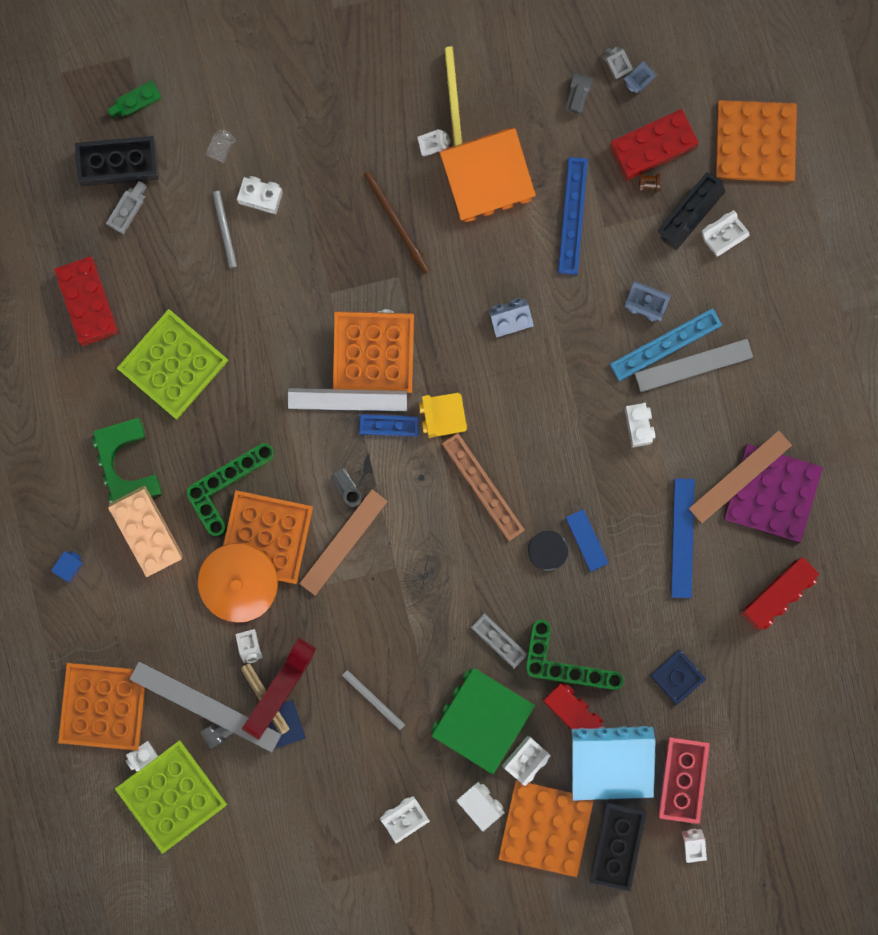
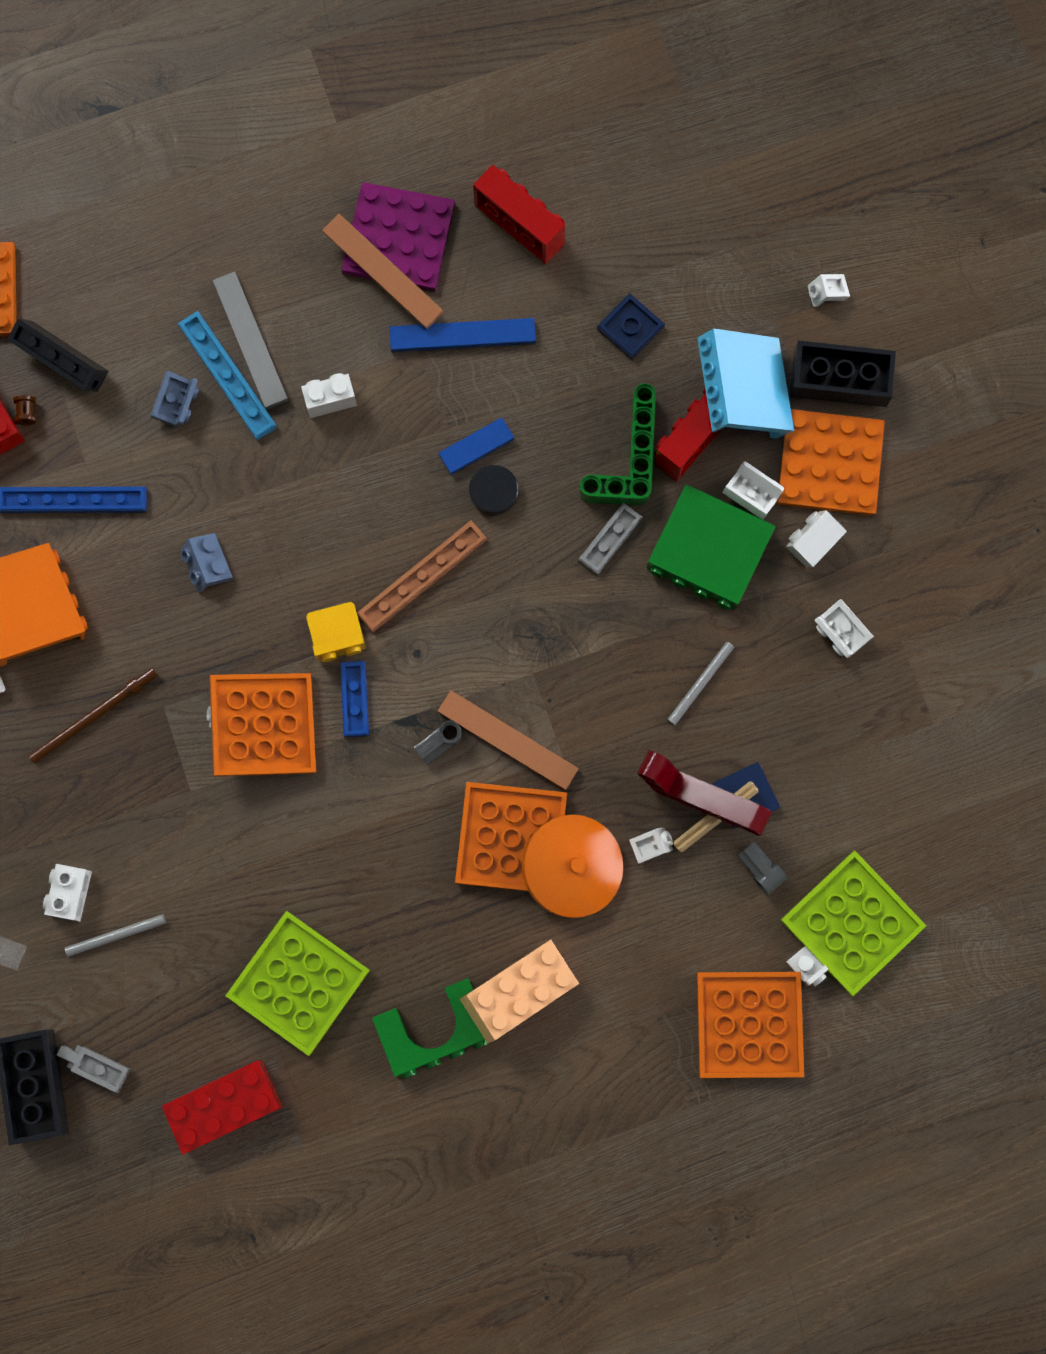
camera: 95 degrees left, 5 degrees down
(68, 566) = (573, 1091): blue brick -> none
(200, 704) = (733, 897): light grey tile -> none
(224, 482) = (445, 898): green beam -> none
(347, 399) = (326, 753): tile -> none
(683, 780) = (755, 305): coral brick -> none
(724, 233) = (84, 316): white bracket -> none

